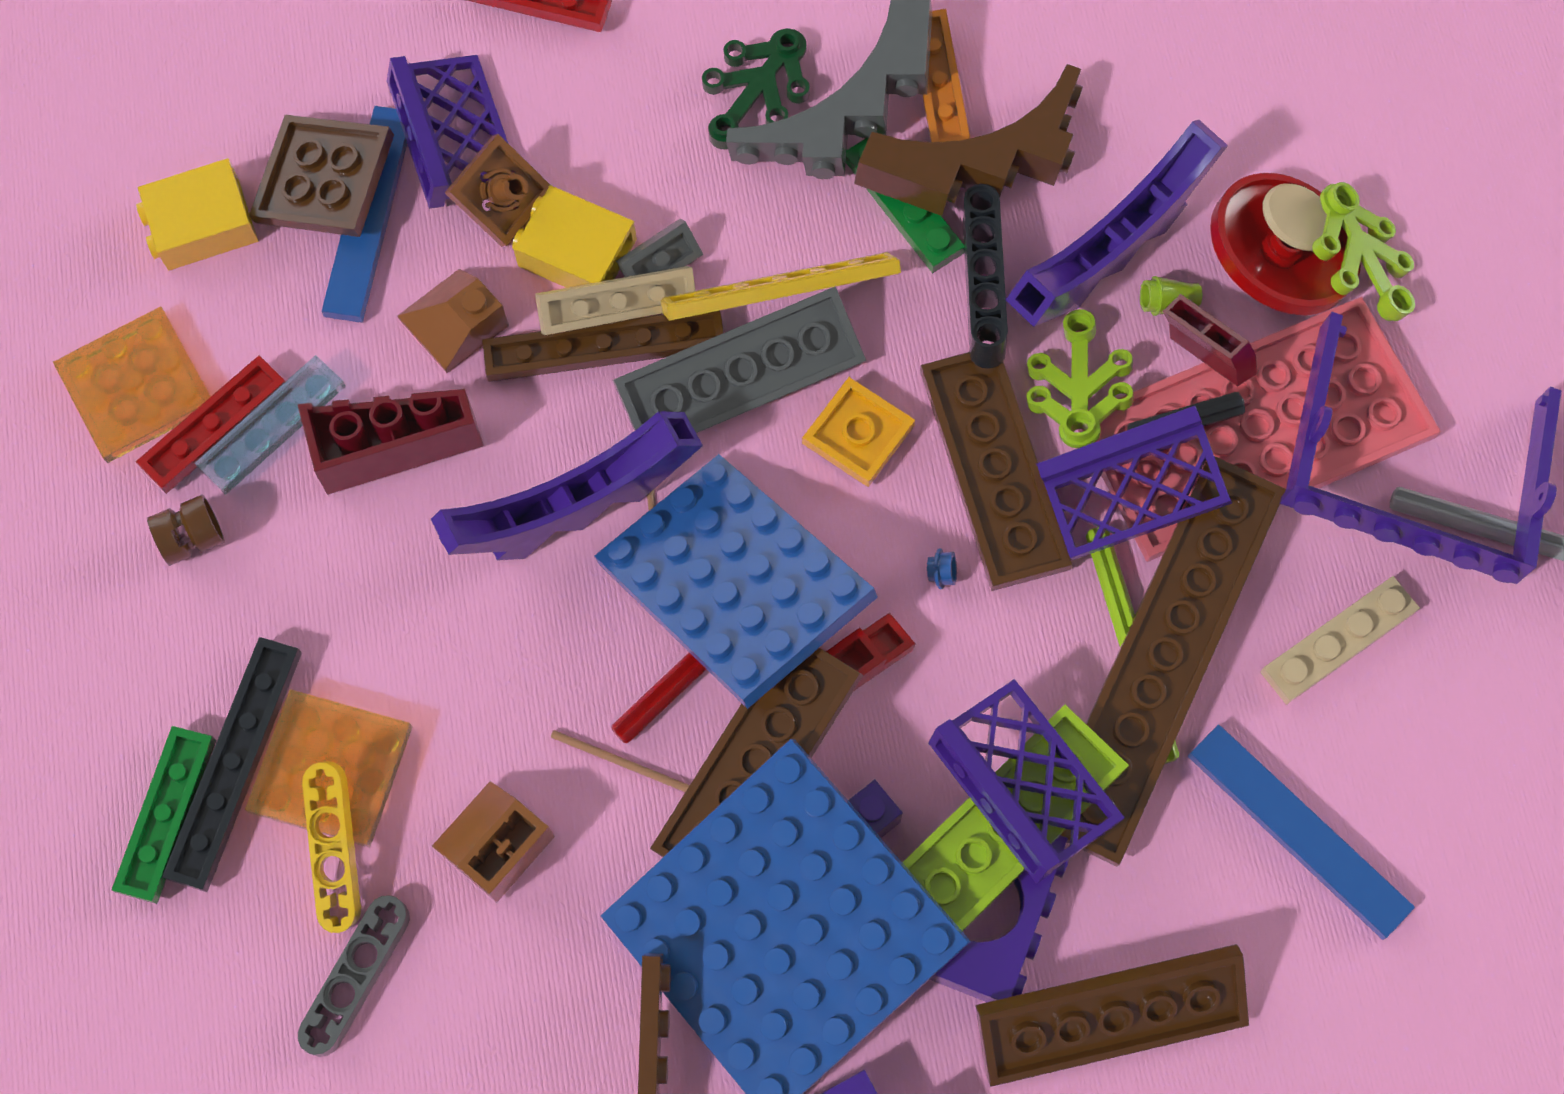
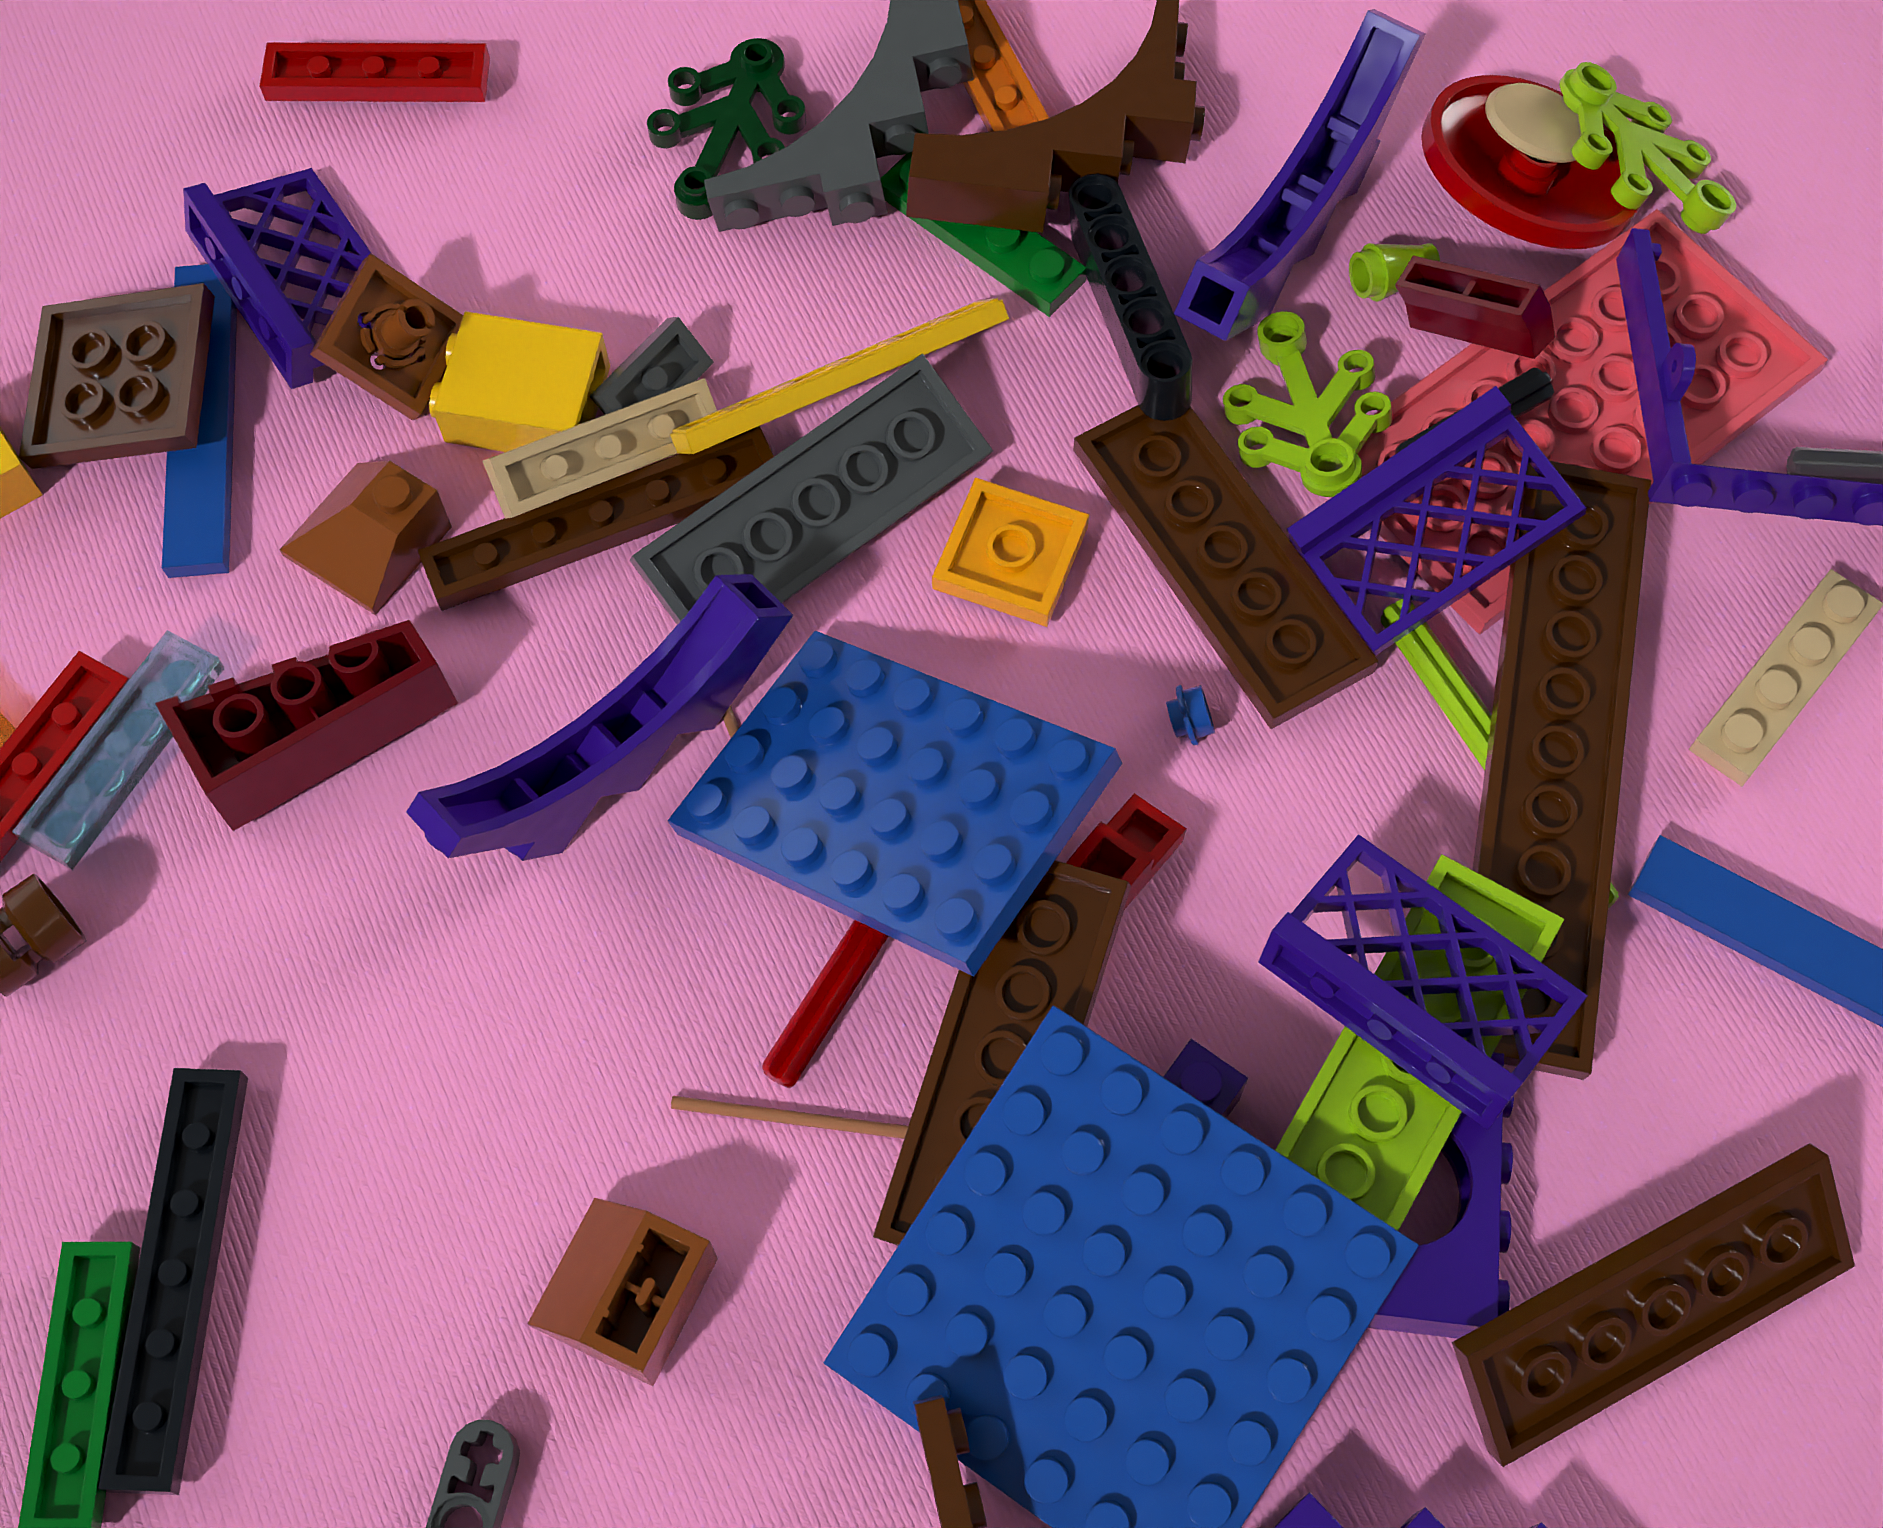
camera: 15 degrees left, 5 degrees down
(321, 731) = (333, 1245): clear yellow plate -> none
(323, 847) = (354, 1369): yellow beam -> none

